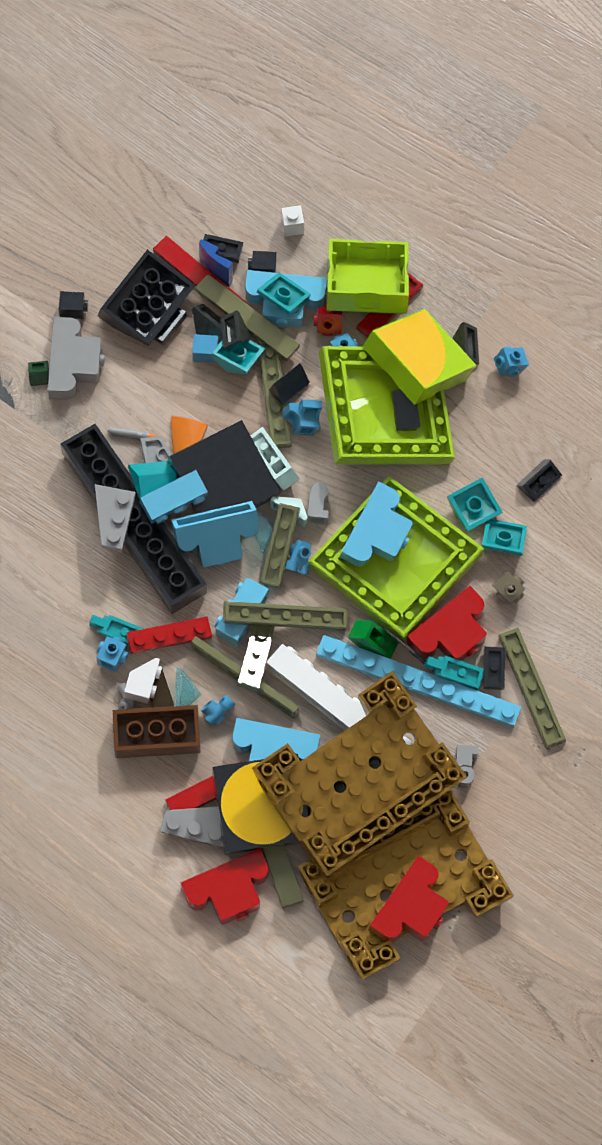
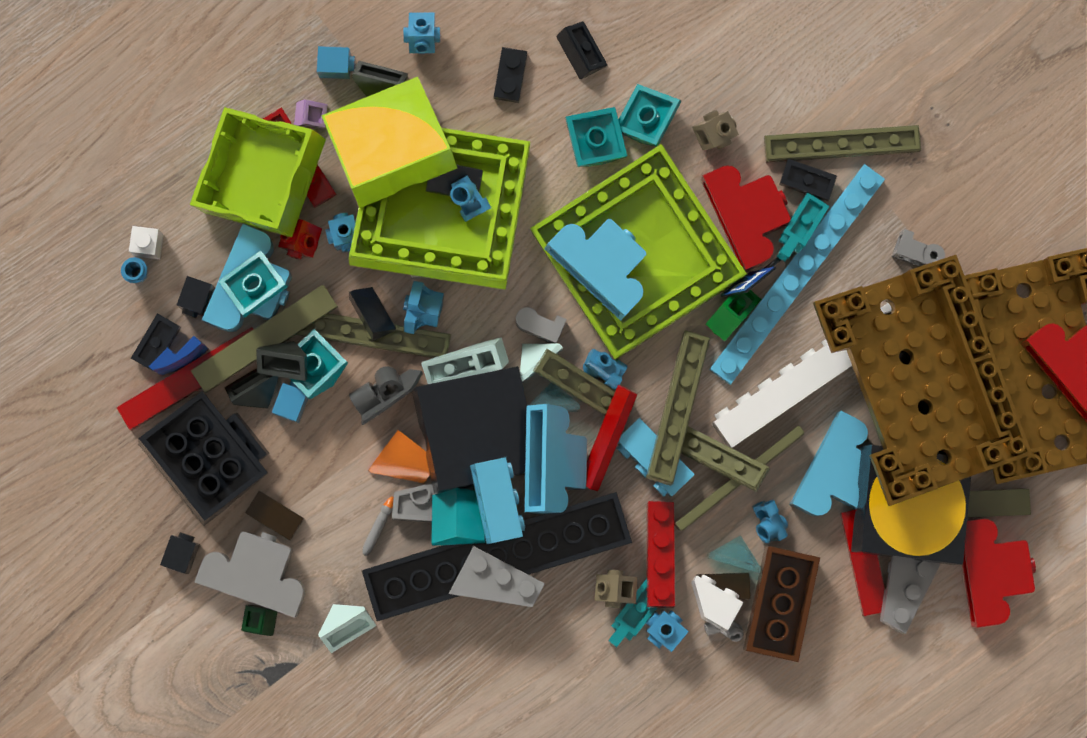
camera: 75 degrees left, 15 degrees up
(50, 430) = (344, 625): none -> light aqua slope
(119, 362) = (274, 515): none -> dark brown tile
(133, 608) = (615, 588): none -> dark tan brick
(237, 410) = (389, 388): none -> dark grey panel
(246, 571) = (609, 436): none -> red tile
(268, 218) = (130, 266): none -> dark azure cone
(397, 417) = (470, 202): none -> dark azure plate
(425, 302) = (309, 114): none -> lavender slope
(468, 309) = (335, 62): none -> dark azure brick
(502, 434) = (510, 75): none -> black plate

